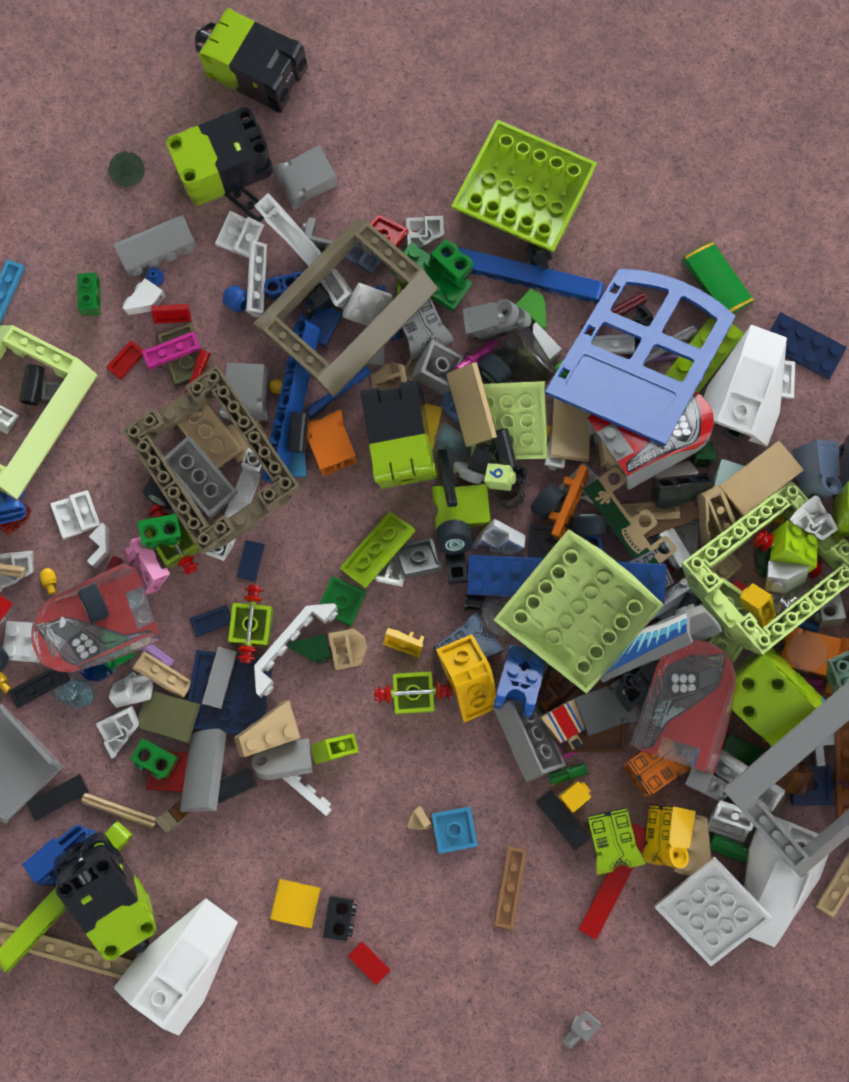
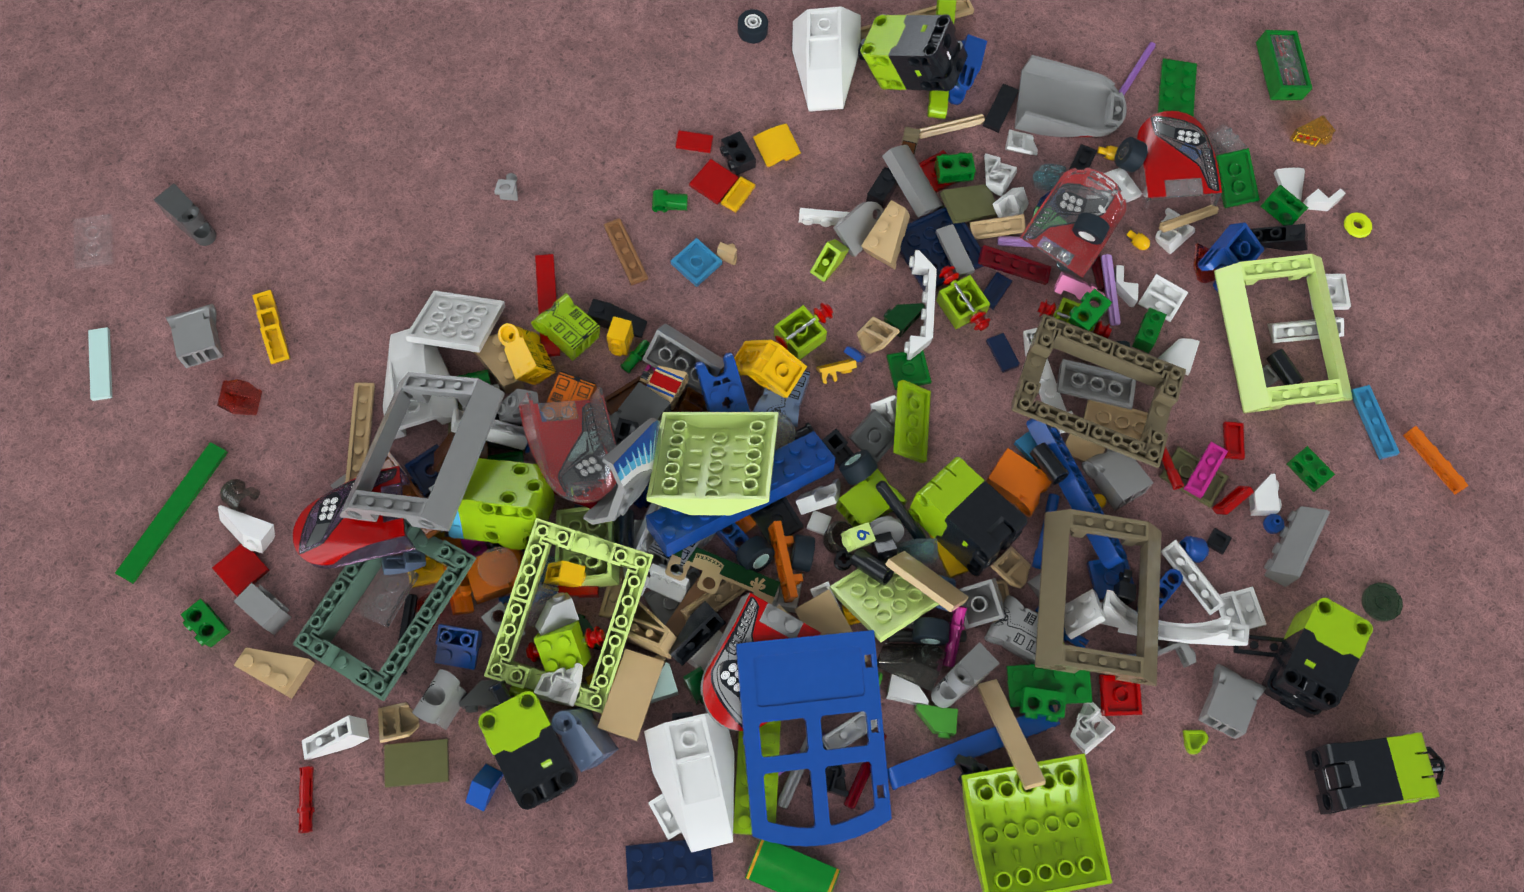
camera: 140 degrees right, 10 degrees down
(71, 745) = (1021, 143): none -> white slope
(108, 455) = (1181, 353): none -> white slope
(114, 492) = (1149, 330): none -> green brick
(116, 547) = (1110, 289): none -> lavender axle
(178, 629) = (1014, 265): none -> dark red plate
(209, 294) = (1218, 541): none -> black tile
(228, 1051) = (752, 26): none -> black wheel
(353, 172) = (1194, 740): none -> lime tile
(367, 876) = (738, 194): none -> yellow tile
(379, 643) = (854, 353): none -> blue tile
(380, 905) = (713, 181): none -> red tile
(439, 912) = (667, 201): none -> green piece
(493, 254) = (1011, 735): none -> tan tile
(514, 520) = (819, 522): none -> white tile

